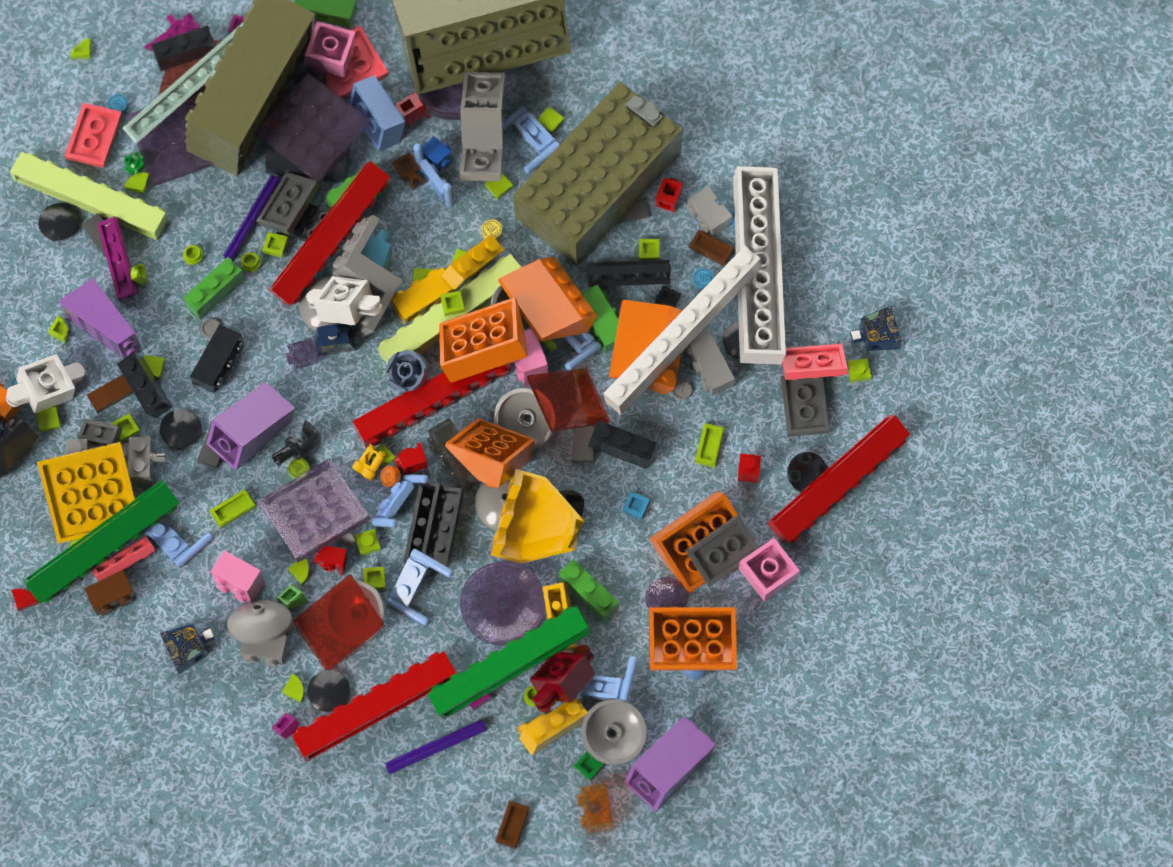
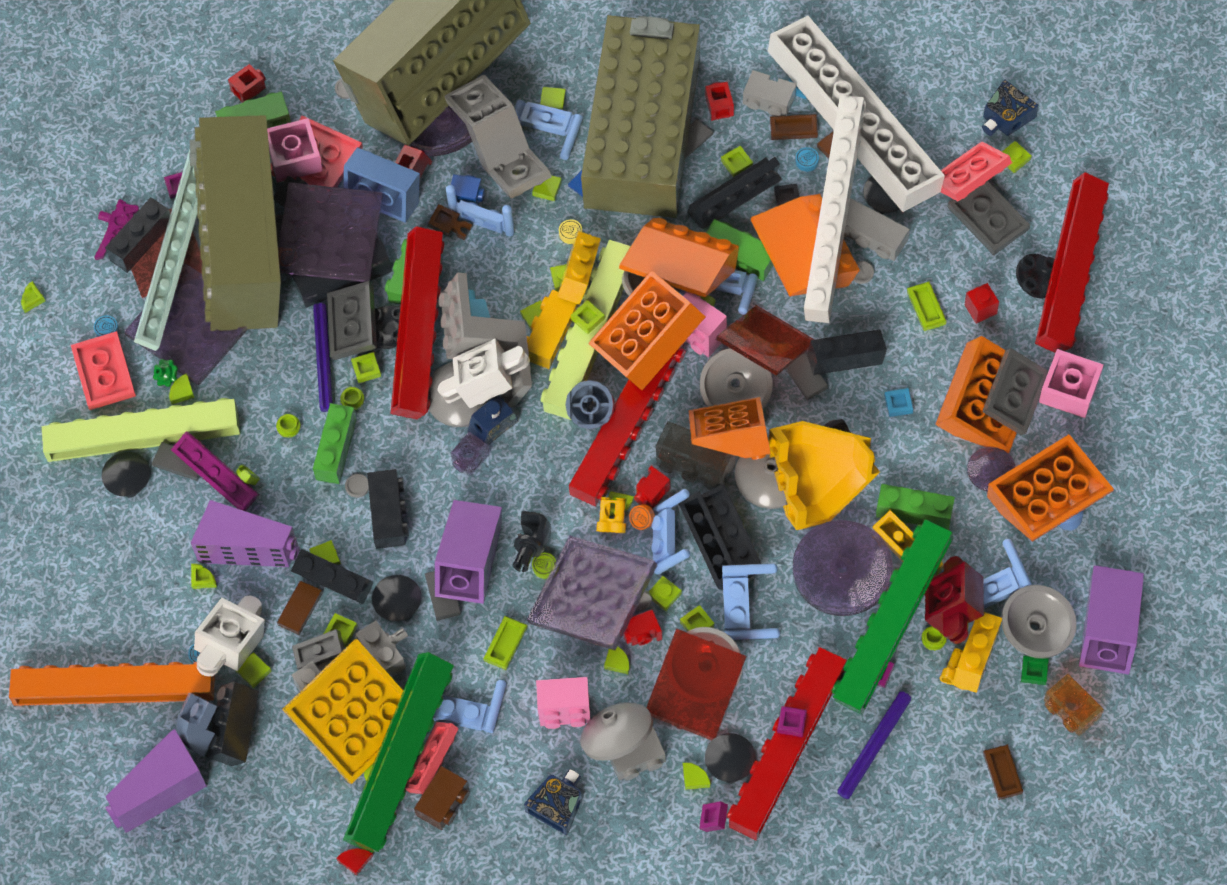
camera: 30 degrees left, 5 degrees down
(292, 597) = (627, 690): bright green slope -> none
(384, 692) = (791, 721): none -> magenta tile

